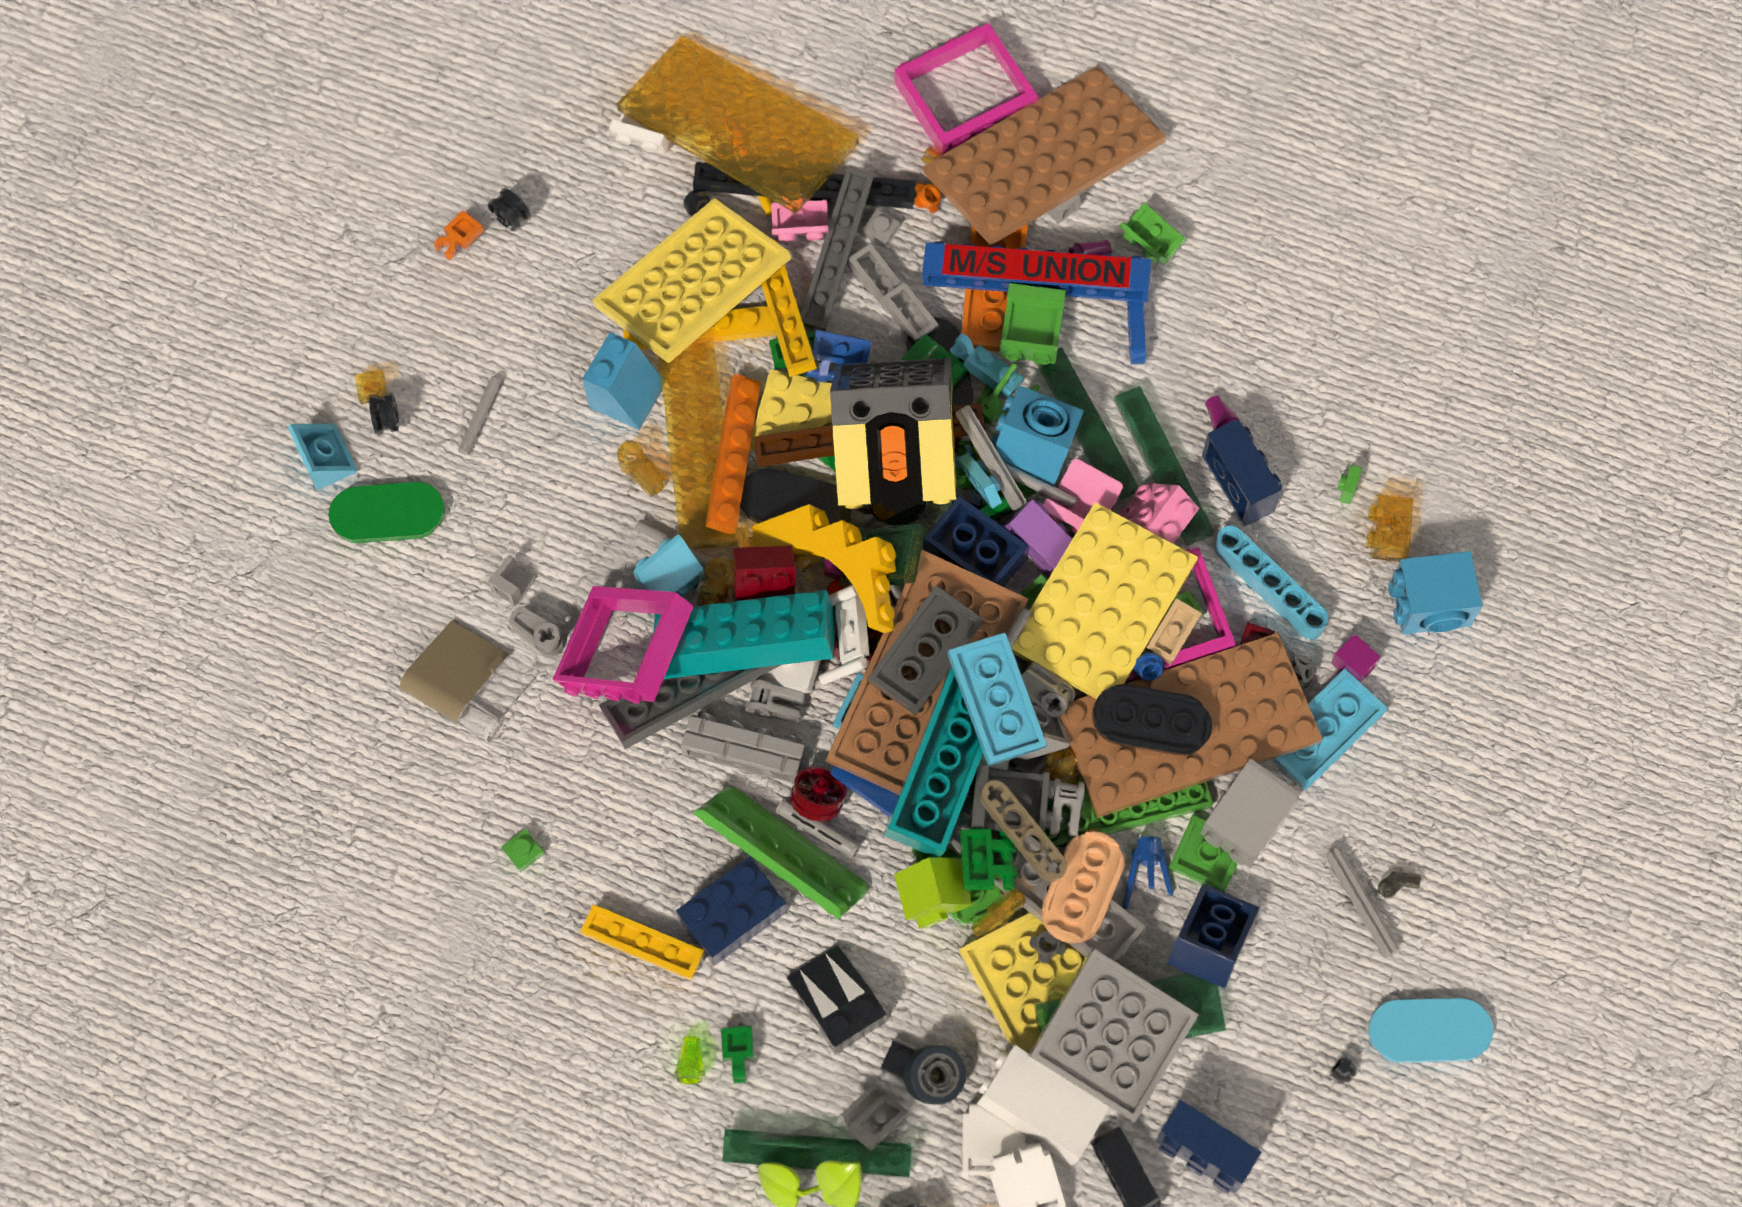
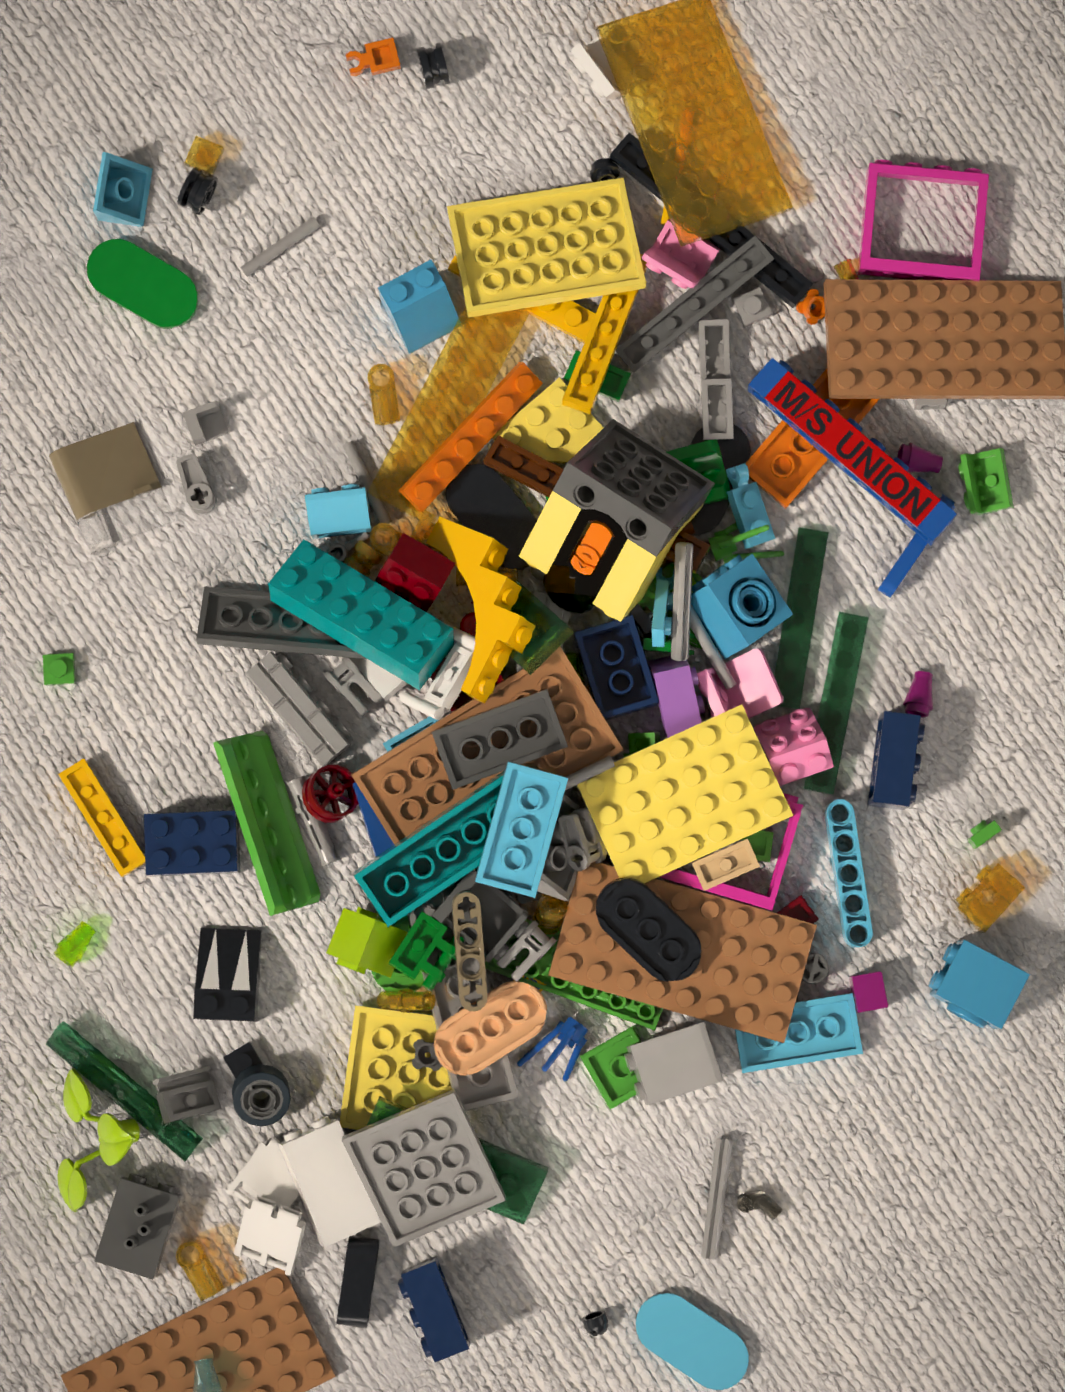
camera: 35 degrees right, 15 degrees up
(591, 626) = (232, 520): dark pink window -> none
(737, 1047) = (119, 958): green plate -> none
(837, 349) = (627, 404): blue plate -> none
(1032, 324) = (813, 498): bright green panel -> none
(1148, 666) = (681, 880): blue plate -> none
(1213, 935) = (565, 1145): dark blue brick -> none

